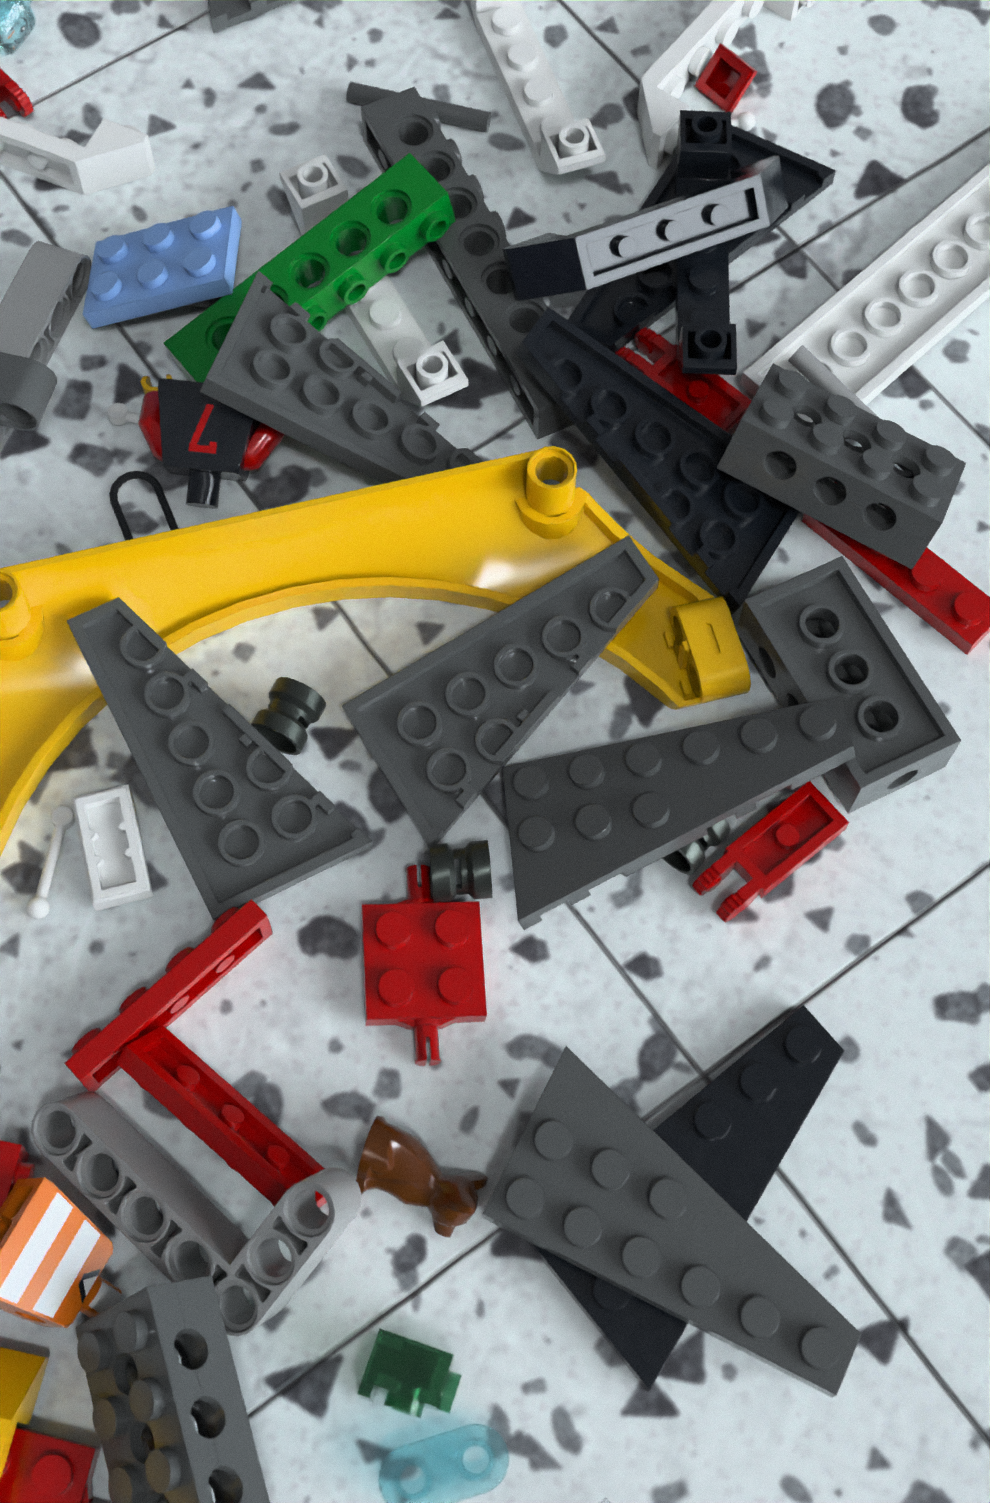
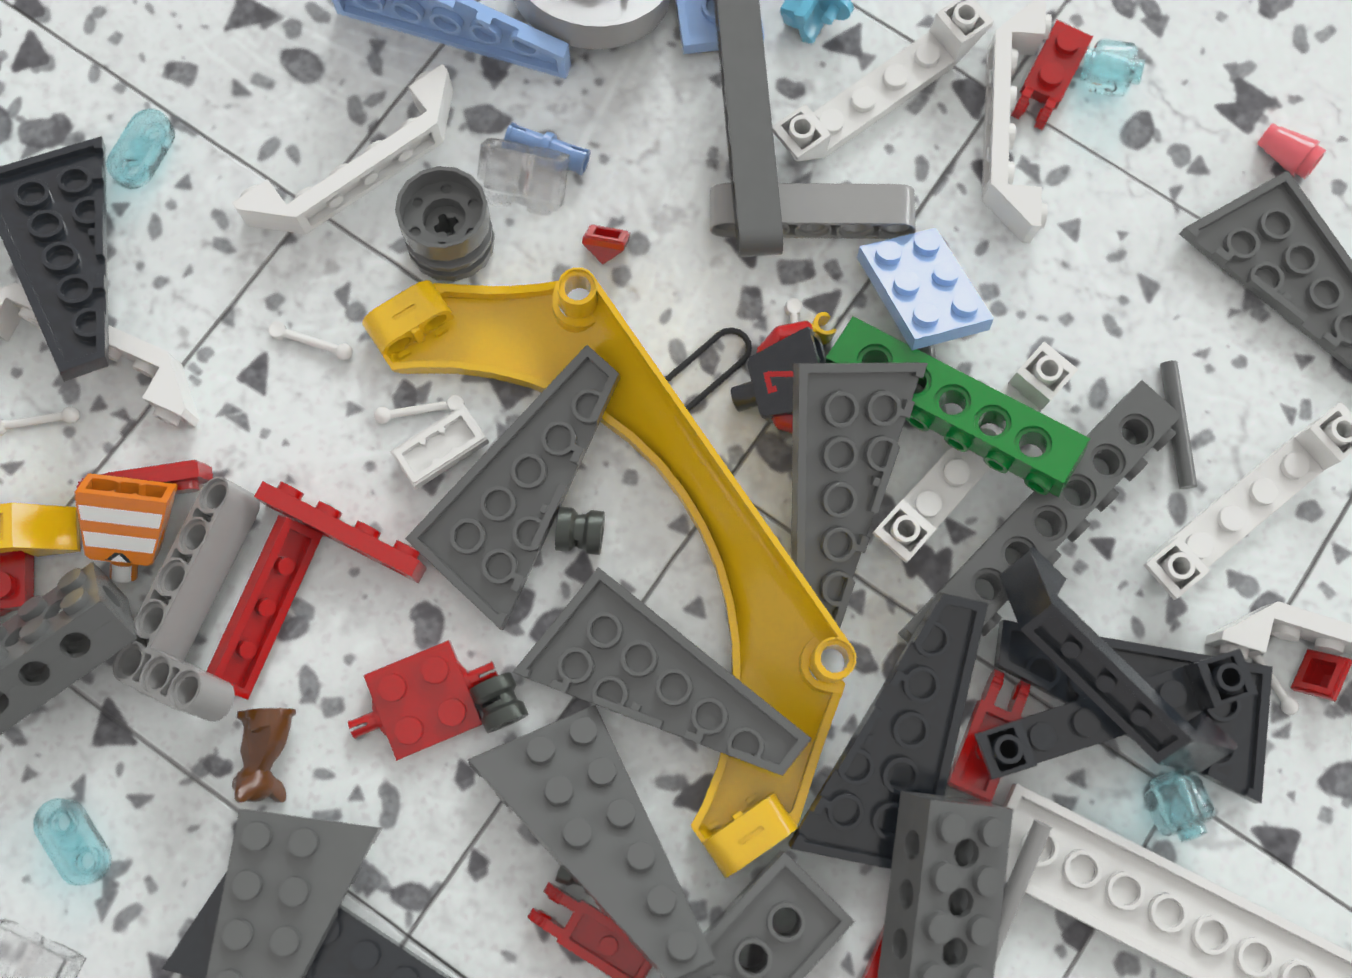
camera: 70 degrees right, 10 degrees up
(410, 1375) = (126, 796): clear green brick -> none
(814, 239) = (1179, 805): none -> clear light blue head

